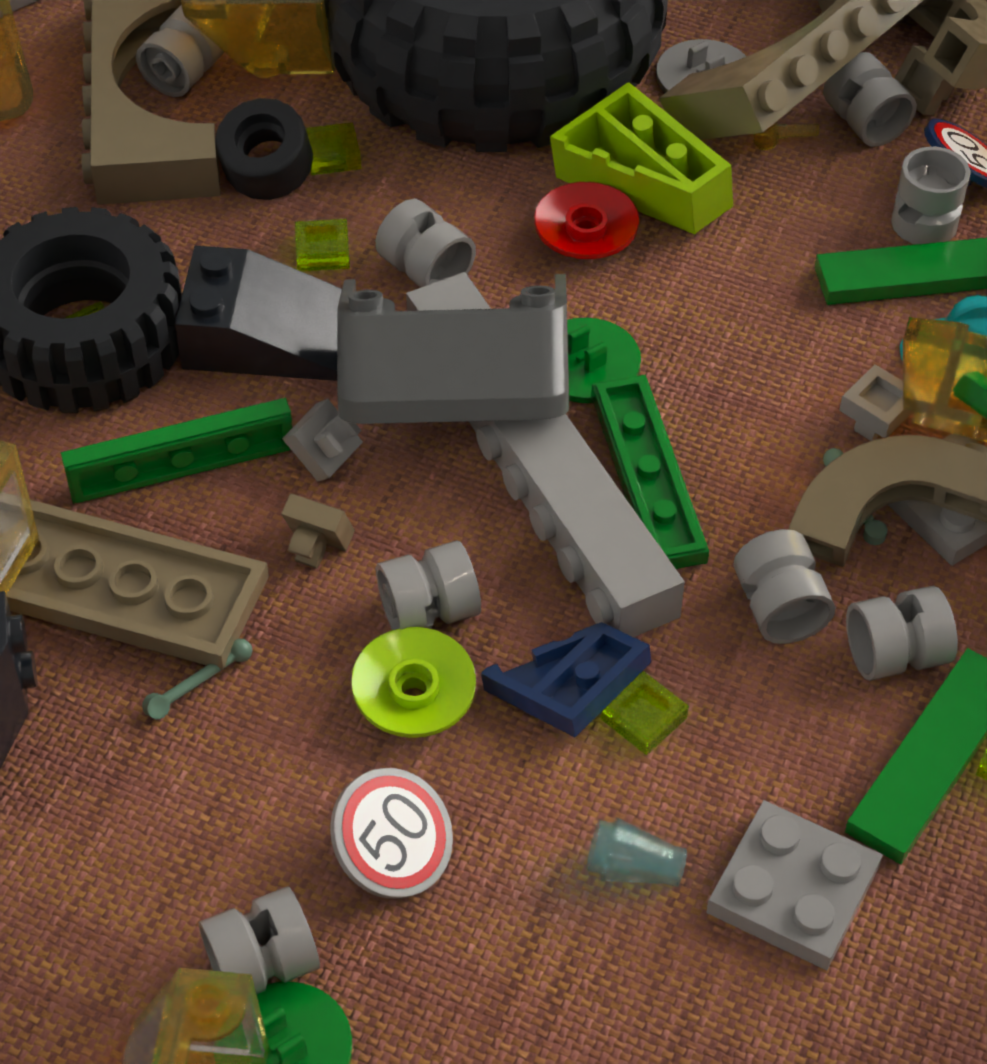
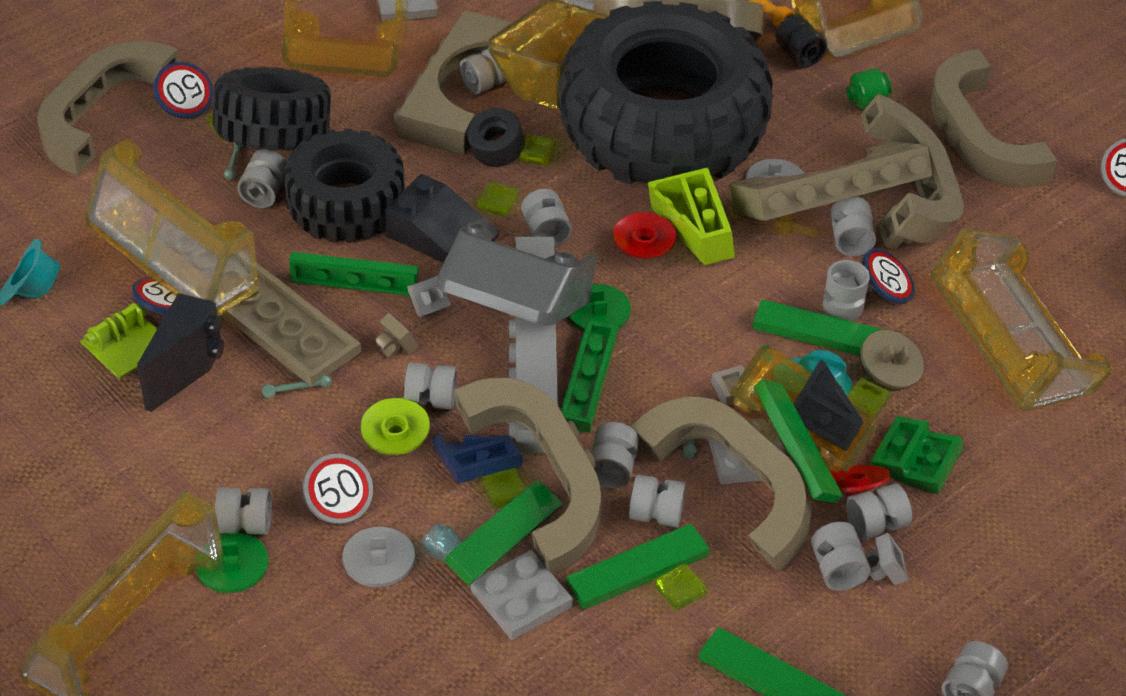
camera: 25 degrees right, 5 degrees down
(523, 922) = (378, 556): none -> light grey piece
(706, 793) = (503, 532): none -> green tile
(725, 613) = (521, 403): none -> dark tan arch

